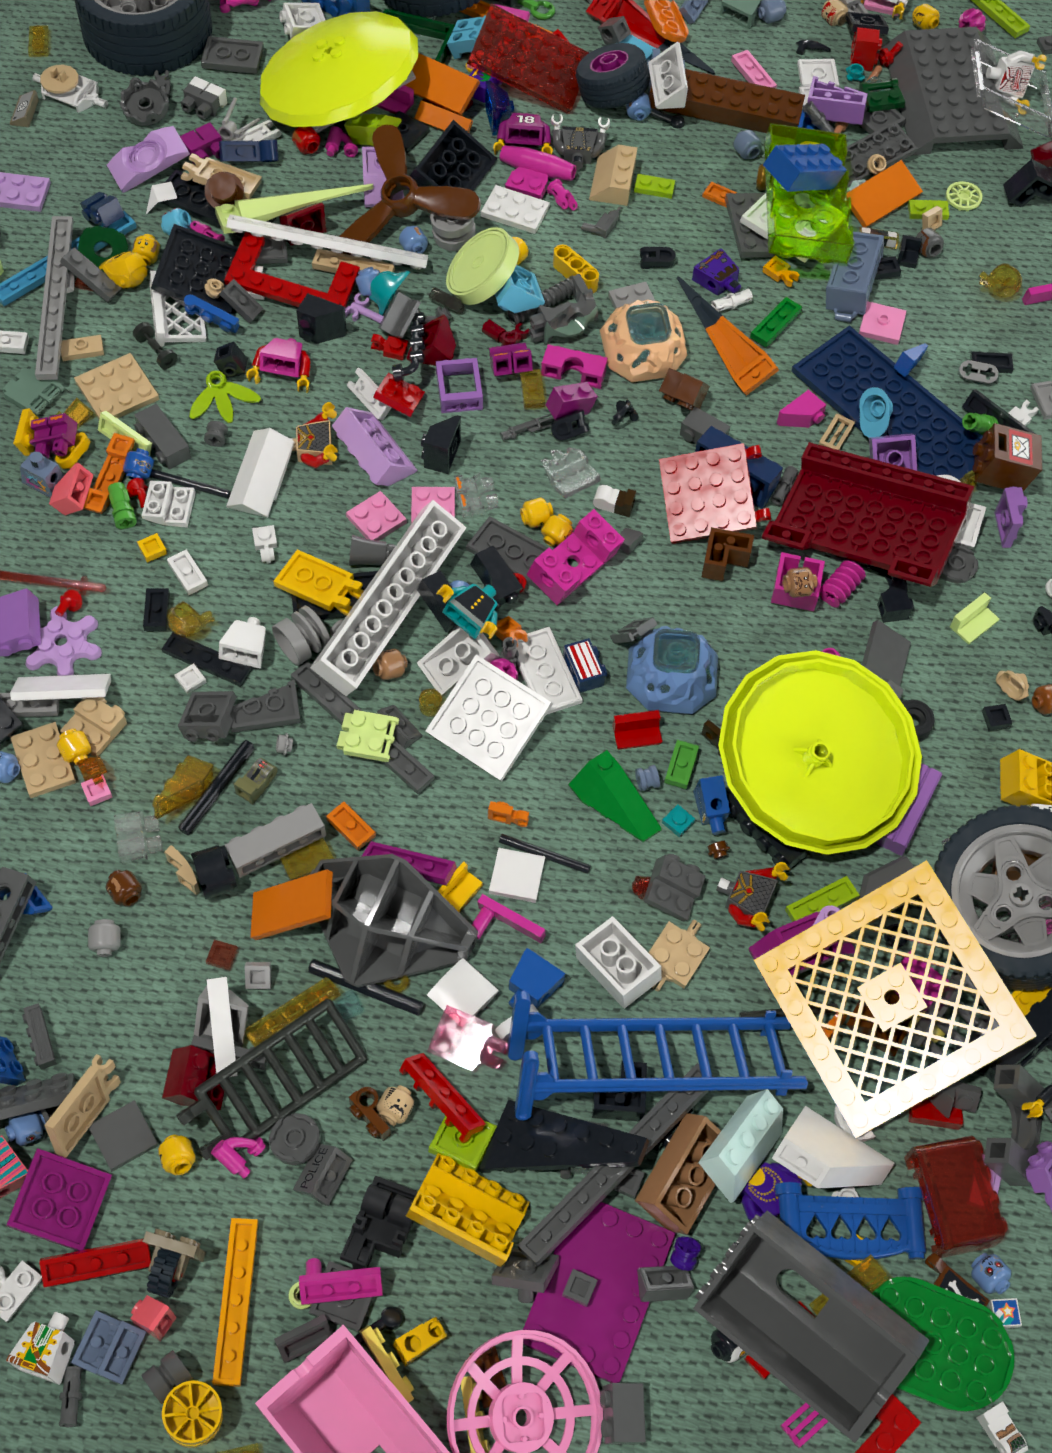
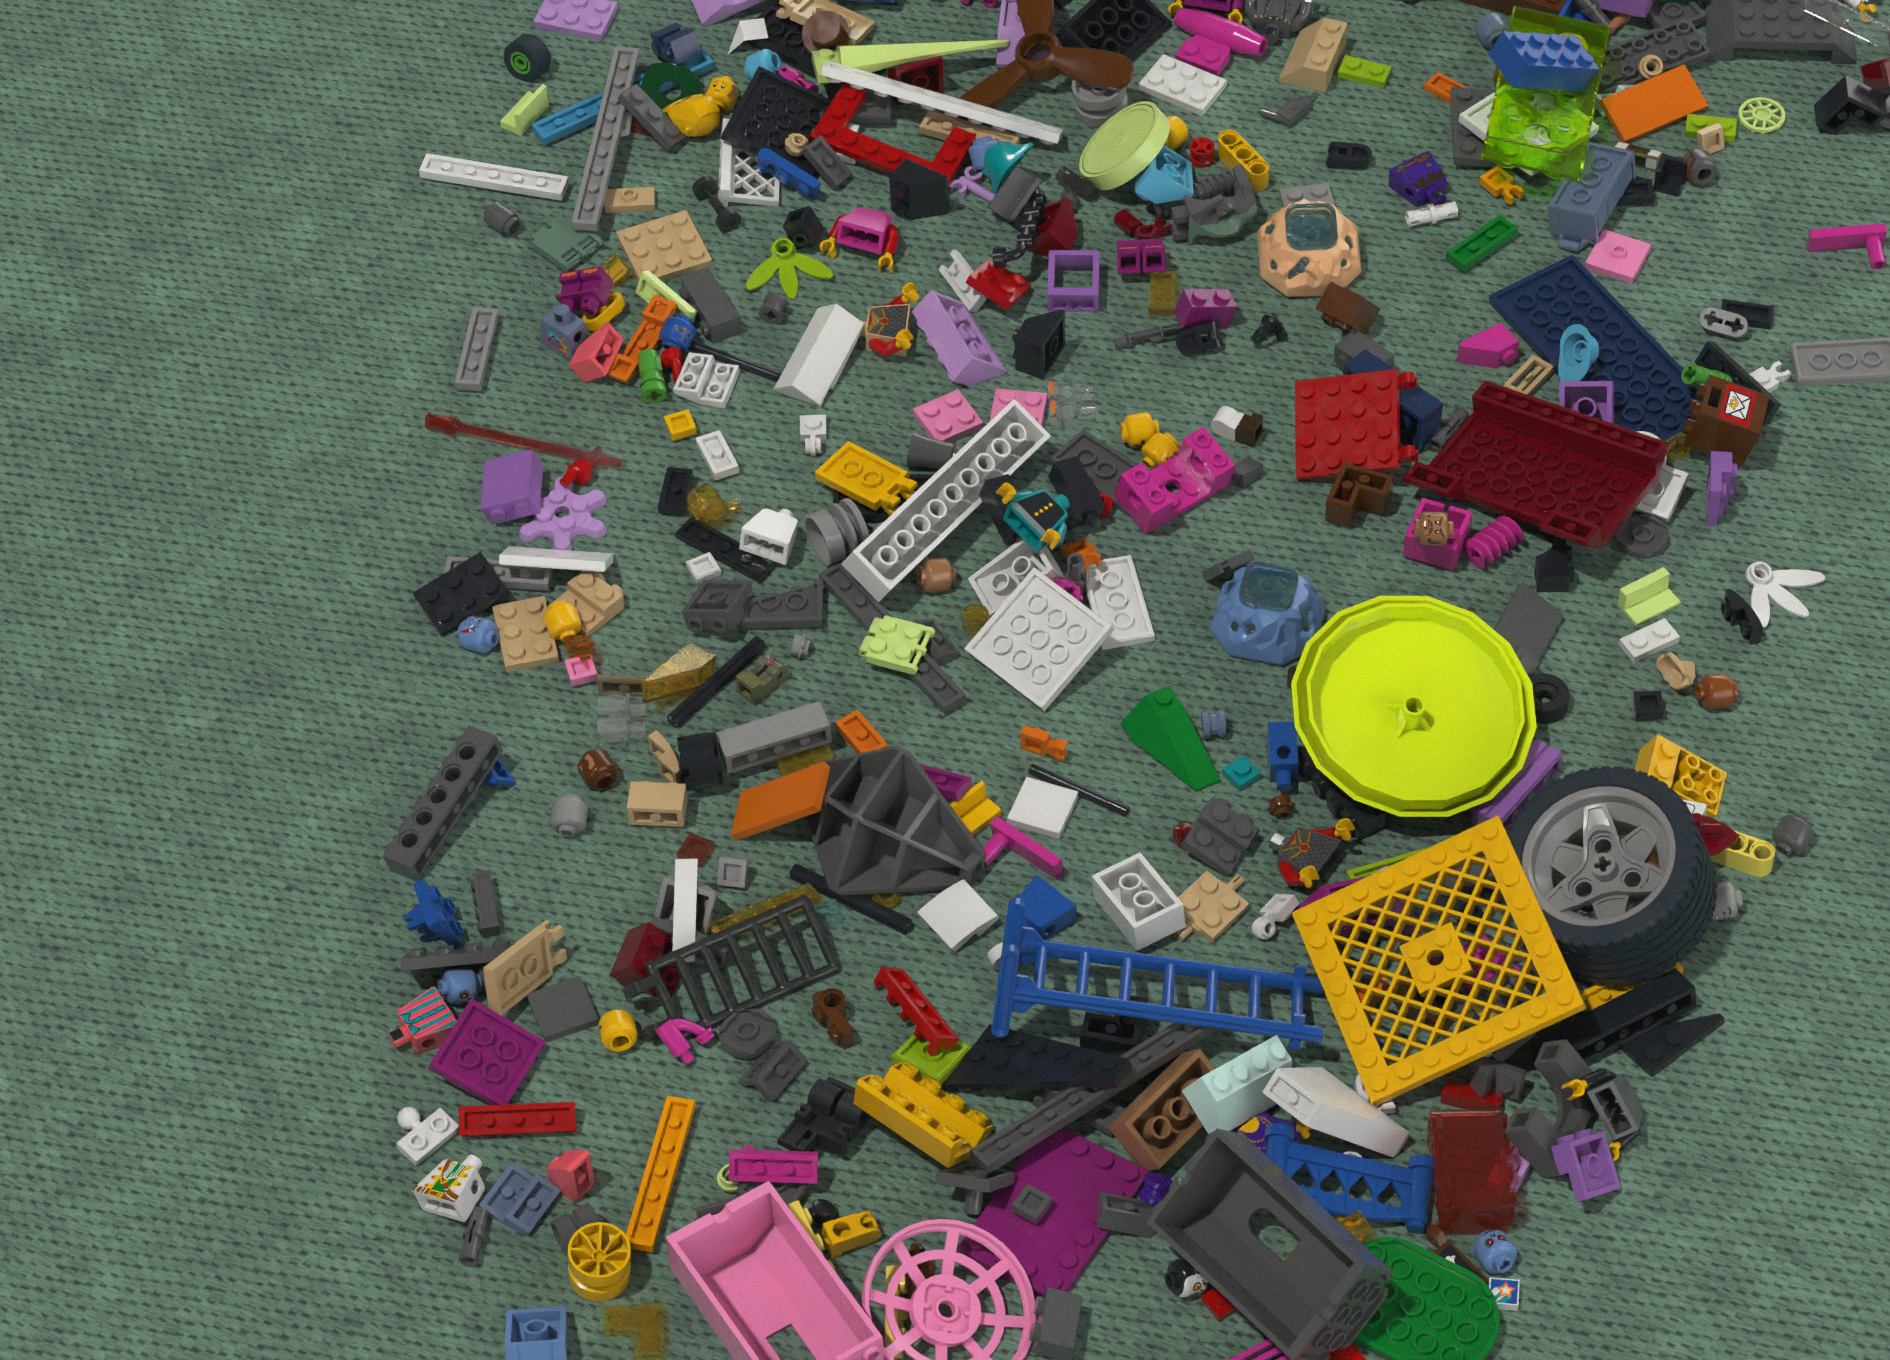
camera: 15 degrees right, 10 degrees down
(25, 433) = (551, 286): yellow plate -> none
(133, 800) = (620, 684): none -> dark tan slope
(169, 1260) = (597, 1119): plate -> none
(181, 916) = (657, 804): none -> tan brick
(391, 348) = (999, 232): red plate -> none
(395, 1105) = (863, 1012): tan head -> none
(413, 239) = (1048, 109): medium blue head -> none
(466, 1040) = (953, 961): clear pink plate -> none
(541, 264) = (1202, 152): none -> red wheel
(560, 359) = (1201, 263): dark pink arch -> none
(562, 196) = (1244, 74): dark pink piece -> none
(570, 472) = (1189, 389): clear plate -> none
(584, 665) = (1163, 599): brick -> none
(637, 729) = (1212, 672): red panel -> none
(681, 764) = (1257, 714): bright green plate -> none
(734, 950) = (1277, 909): none -> white plate
(742, 357) = (1428, 279): orange plate -> none
(909, 359) = (1638, 299): blue slope -> none
(983, 657) = (1649, 640): none -> white plate
(1002, 281) = (1782, 220): clear yellow hat -> none

